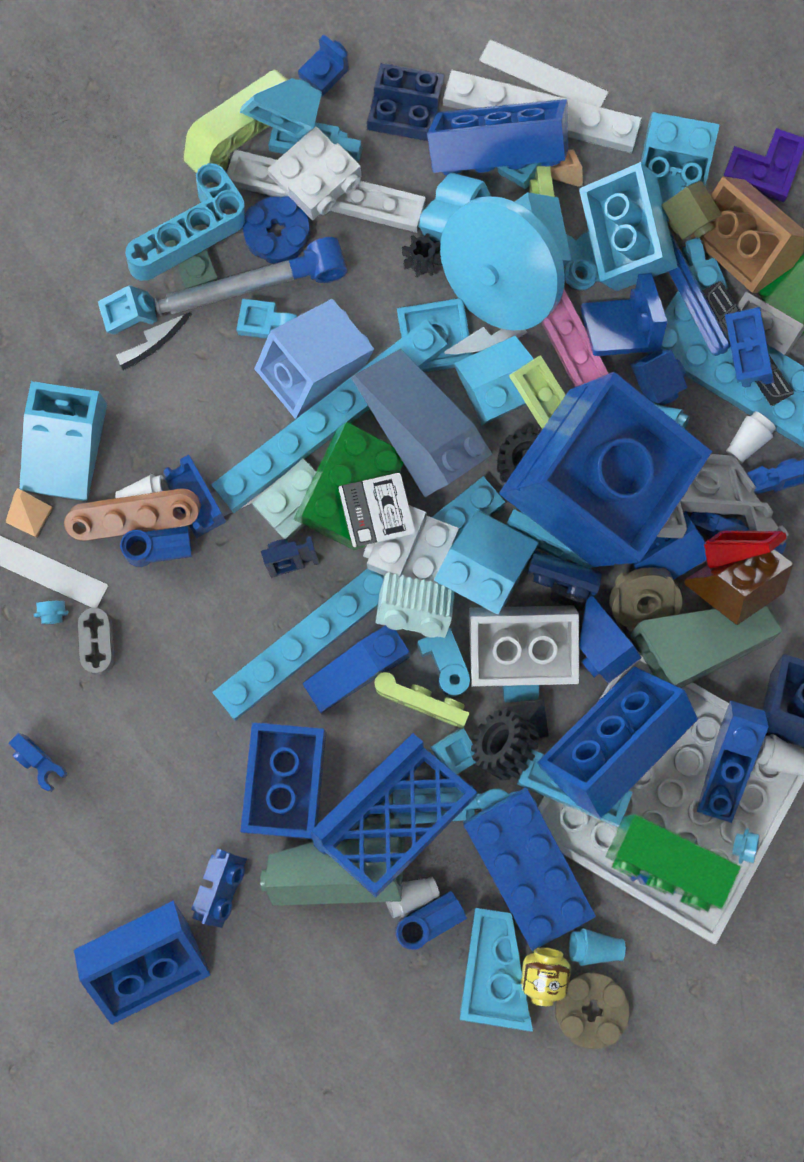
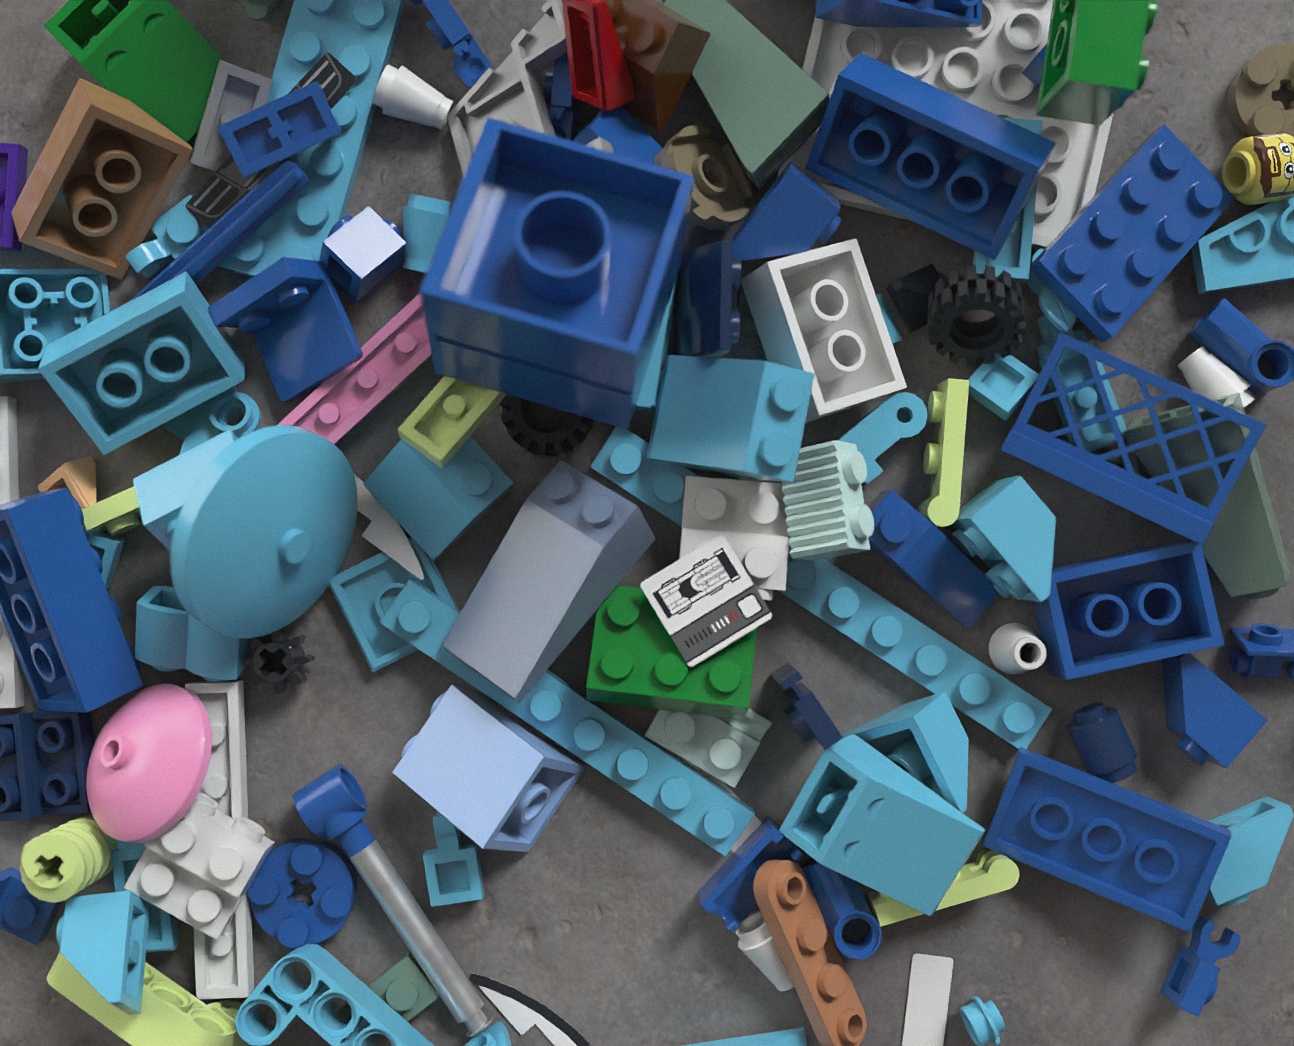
camera: 110 degrees left, 10 degrees up
(102, 806) = (1252, 851): none -> medium azure slope
(104, 641) = (1007, 953): light grey beam -> none
(141, 720) = (1107, 839): none -> blue plate
(144, 611) = (978, 879): none -> yellowish green plate
(197, 818) = (1206, 712): none -> blue slope
(201, 576) = (880, 826): none -> medium azure slope
(201, 744) = (1103, 742): none -> dark blue brick
(231, 616) = (926, 743): none -> medium azure slope
(284, 716) = (1006, 646): none -> white cone
(344, 101) = (66, 859): none -> yellowish green piece
(355, 719) = (1011, 536): none -> medium azure slope
(385, 161) = (149, 763): none -> bright pink dish
(592, 947) = (1204, 115): medium azure cone -> none
(692, 211) = (90, 273): olive brick -> none

